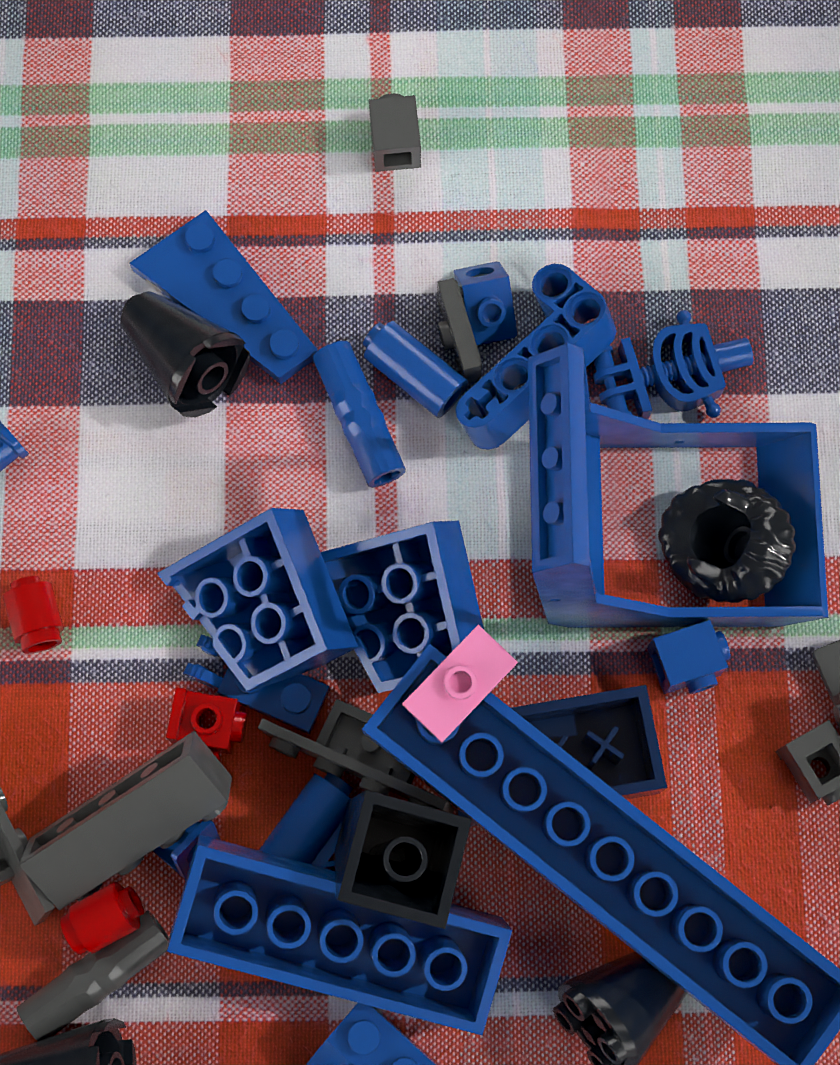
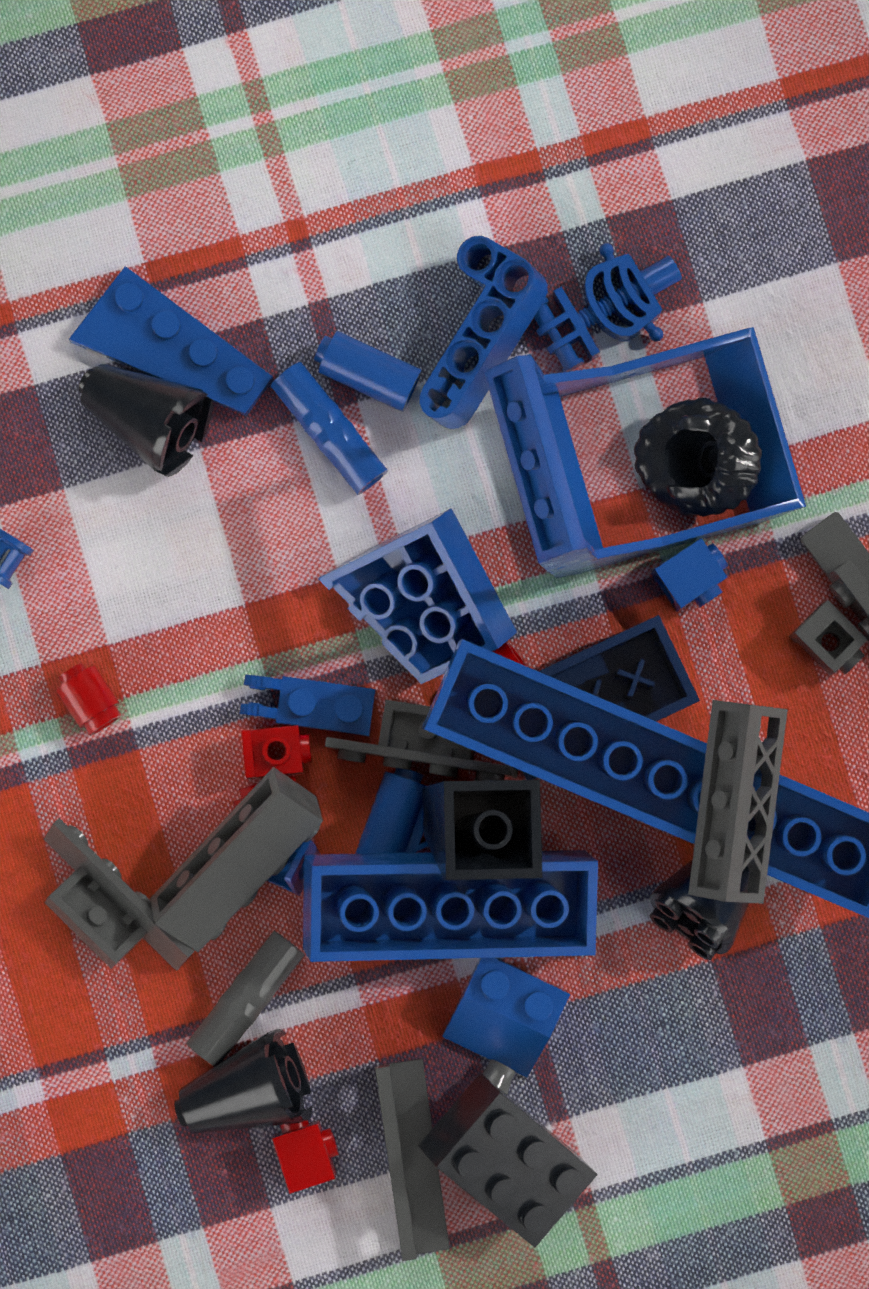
camera: 20 degrees left, 10 degrees up
(102, 918) = (239, 948): red brick -> none
(265, 598) = (296, 629): blue wedge -> none
(395, 132) = (283, 138): dark grey brick -> none
(456, 330) = (398, 324): dark grey plate -> none
(459, 683) = (499, 667): bright pink plate -> none
(488, 302) = (417, 285): blue bracket -> none
(677, 901) = (731, 802): none -> dark grey fence

